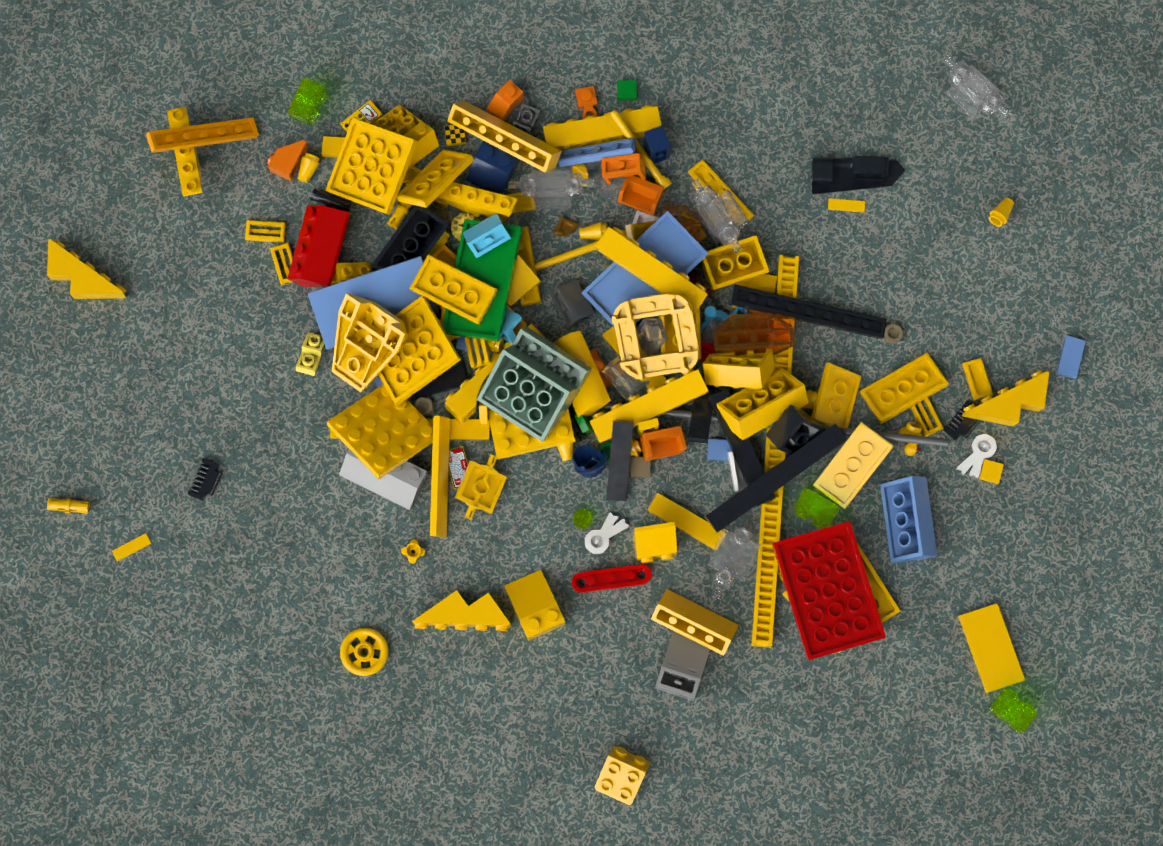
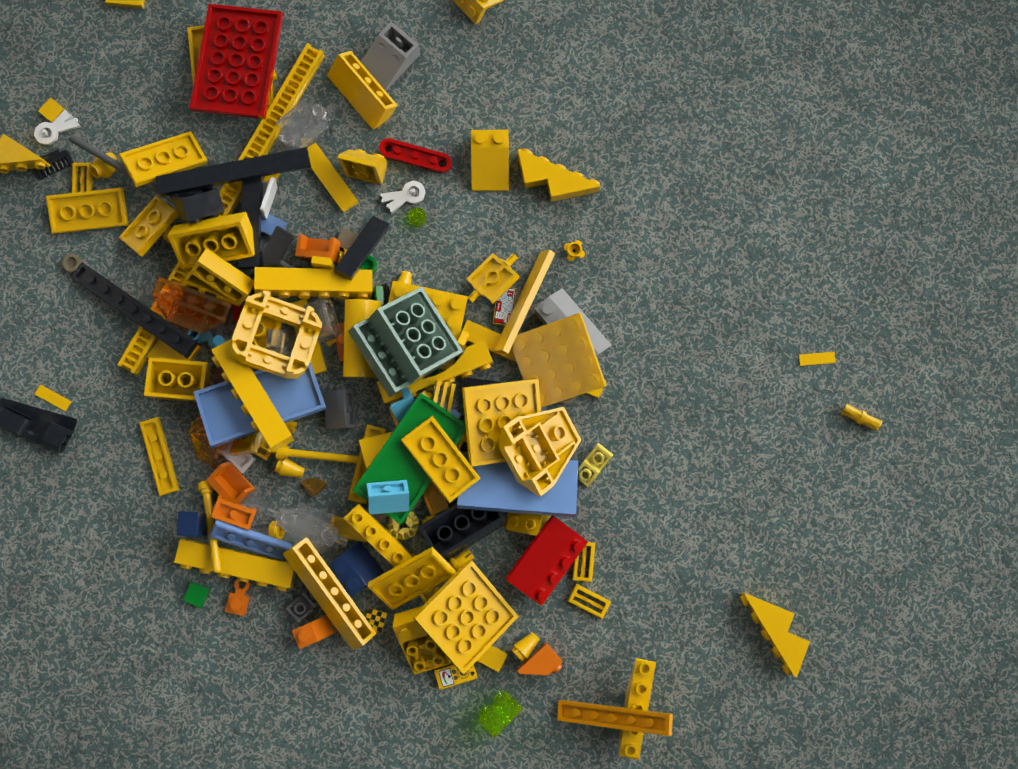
camera: 160 degrees left, 5 degrees up
(209, 483) = (728, 385): black piece -> none
(330, 200) = (517, 604): black pin -> none
(362, 634) = (646, 198): yellow plate -> none
(424, 406) = (512, 373): dark tan tile -> none
(589, 461) = (387, 259): dark blue piece -> none
(720, 215) = (167, 429): clear piece -> none
(815, 509) = (214, 138): clear neon green brick -> none
(908, 519) = (142, 98): medium blue slope -> none
(977, 379) = (21, 193): yellow tile -> none

